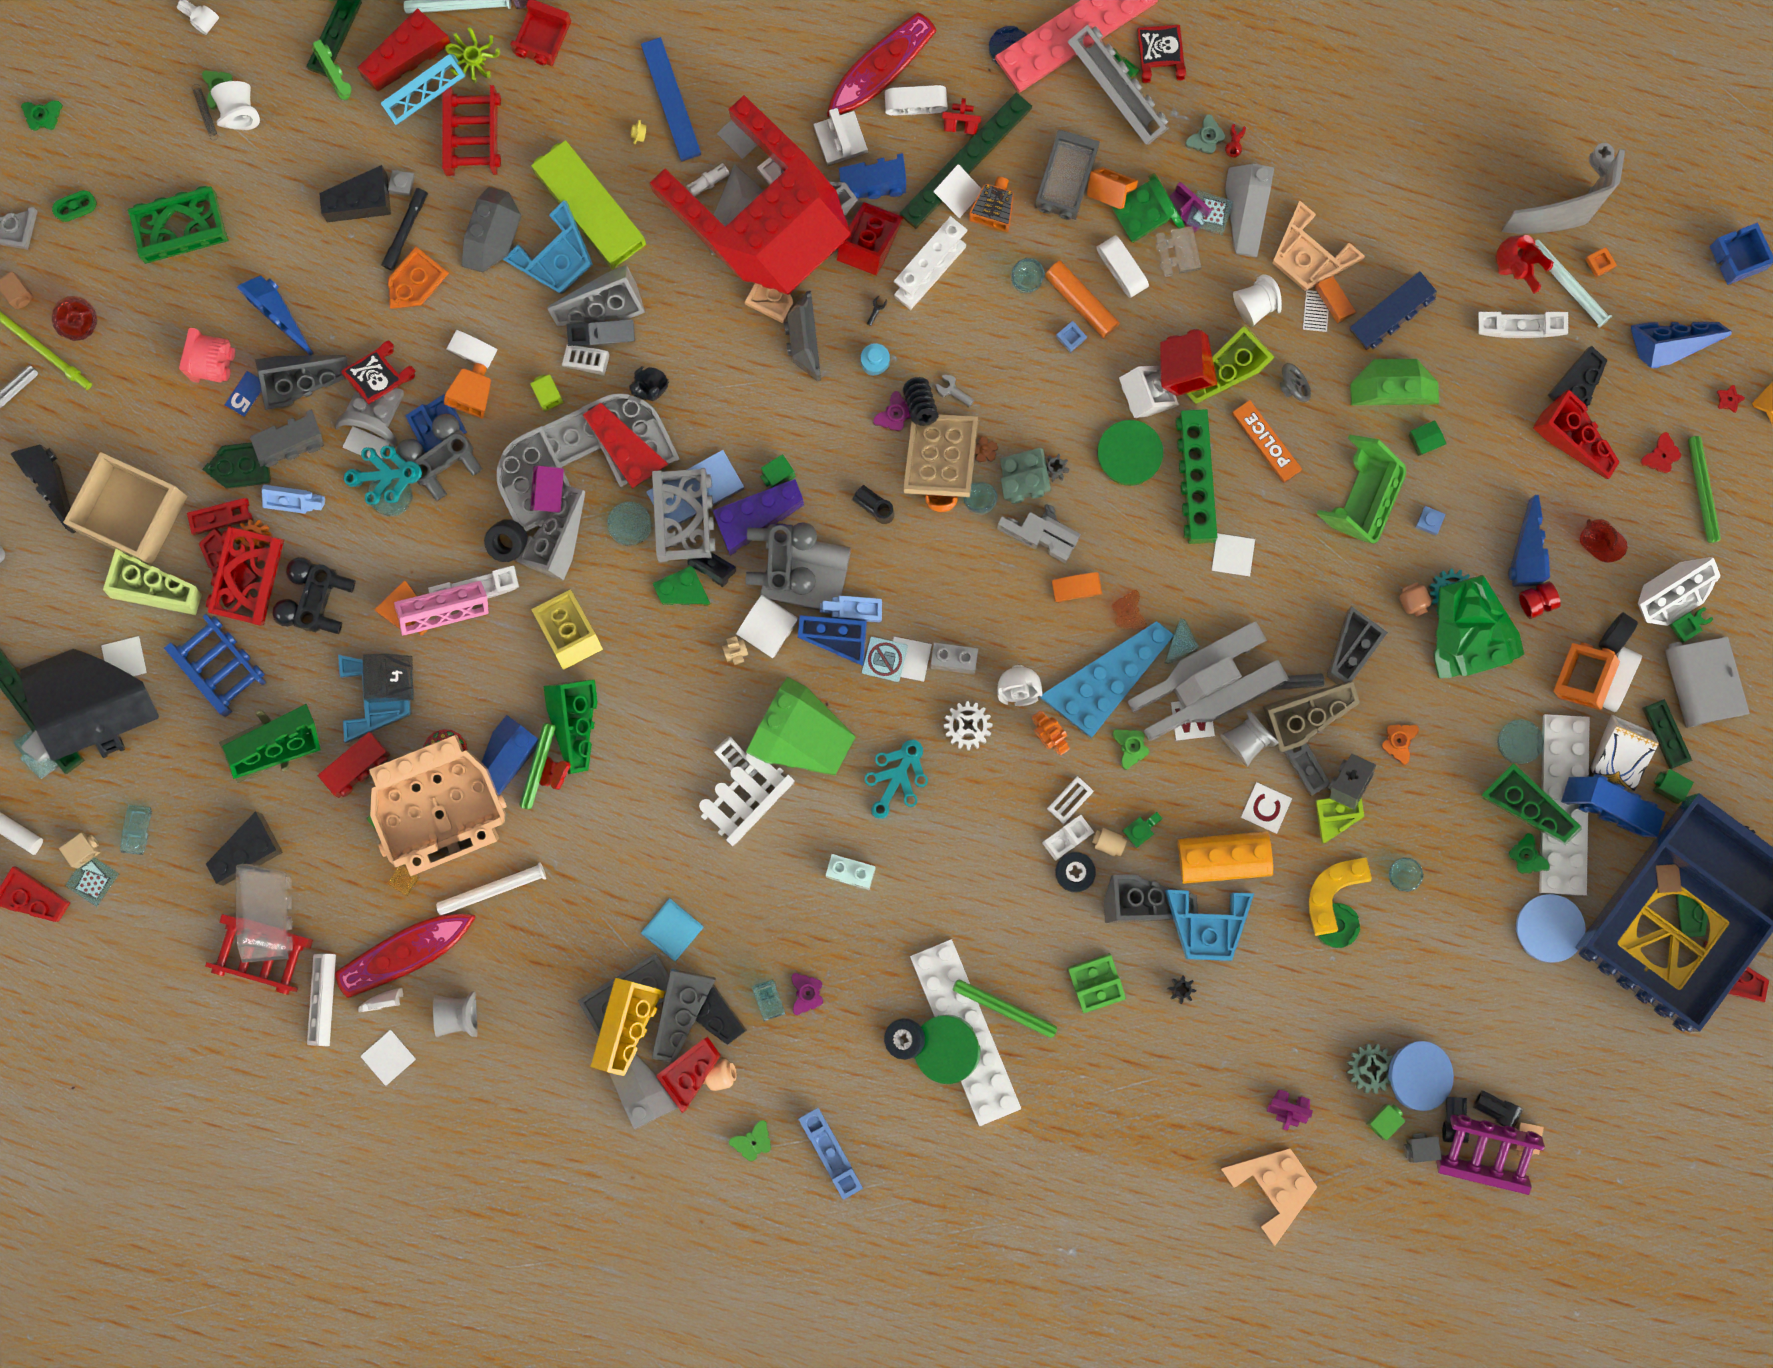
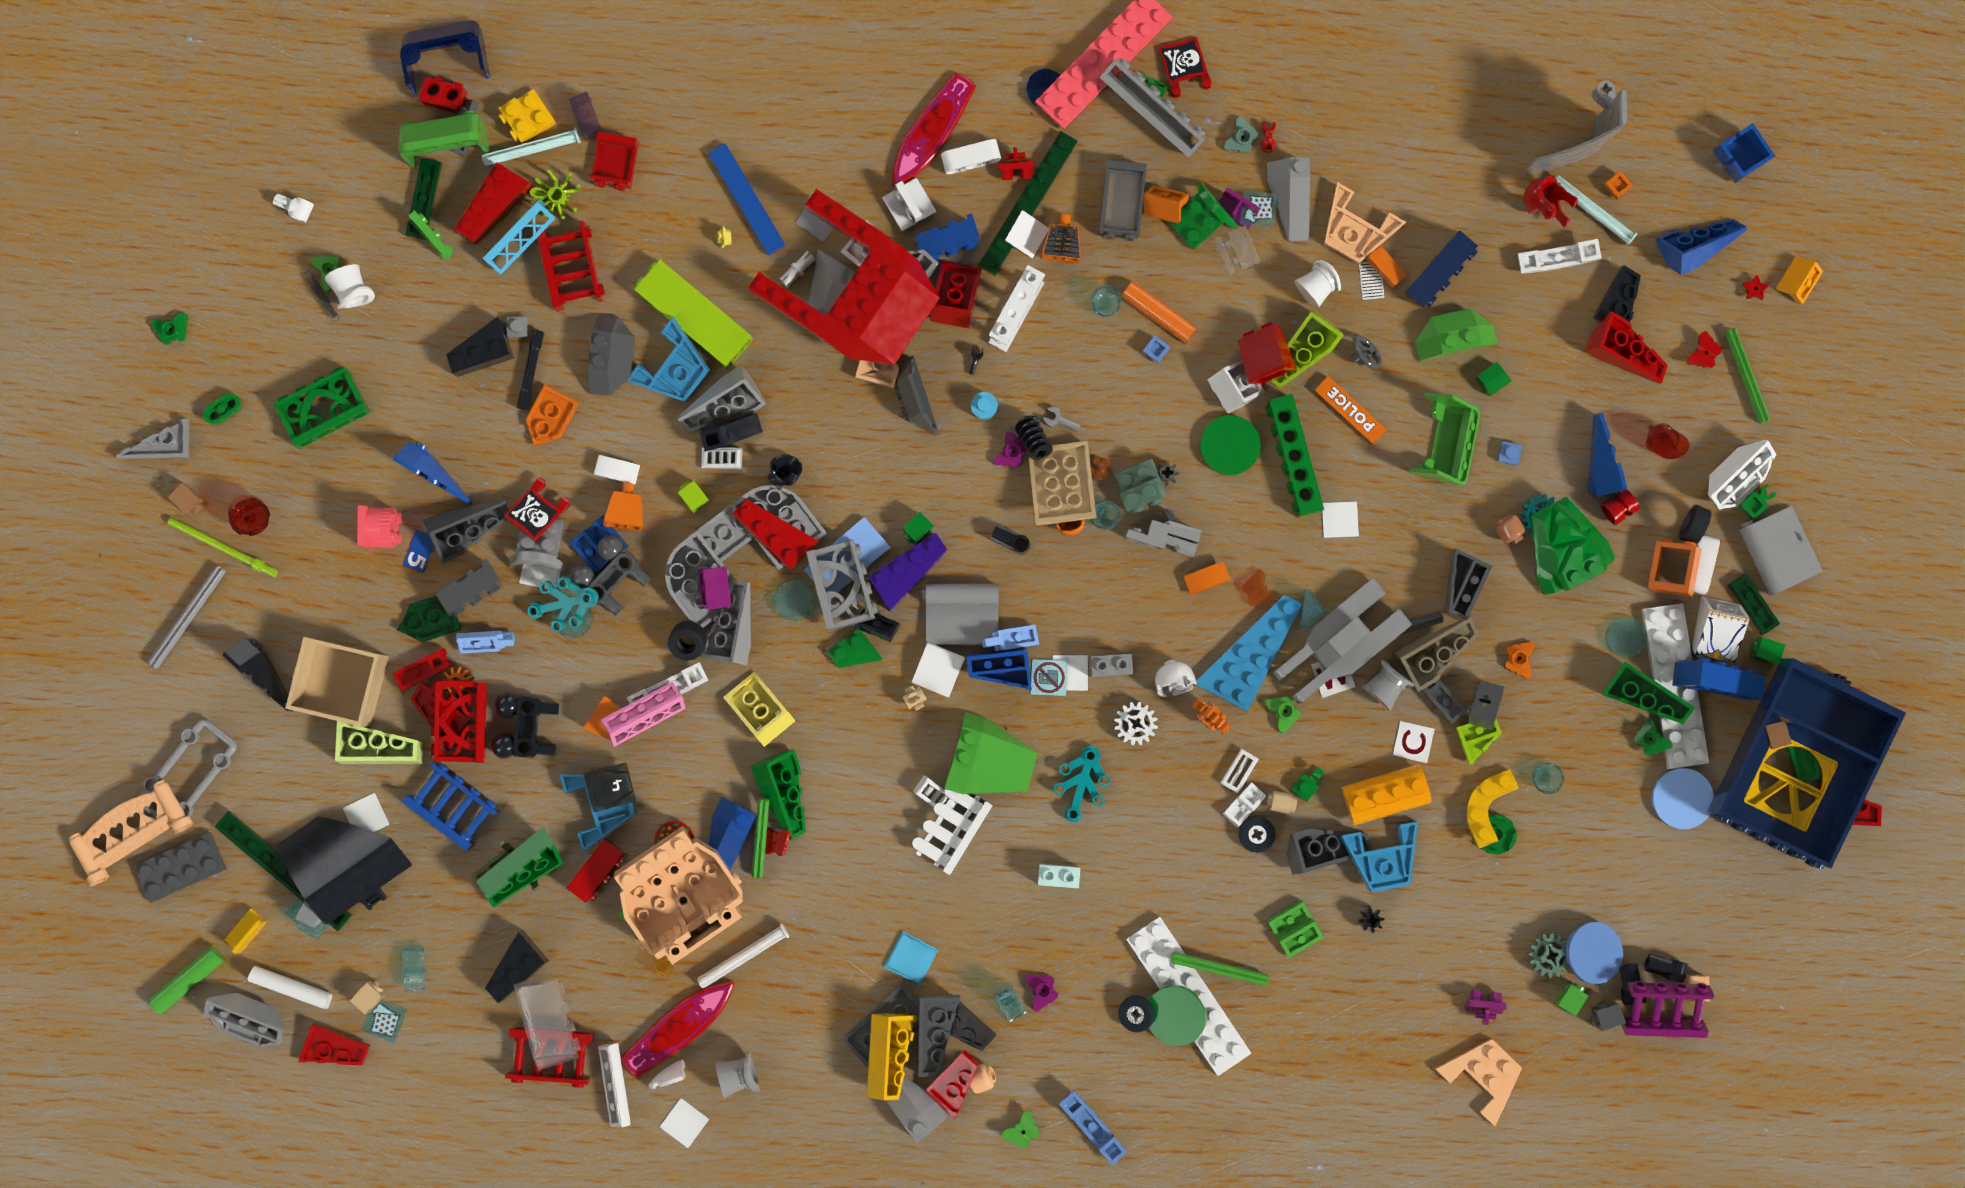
camera: 15 degrees left, 5 degrees up
(802, 537) = (937, 605): dark grey piece -> none
(1122, 266) = (1189, 275): white beam -> none

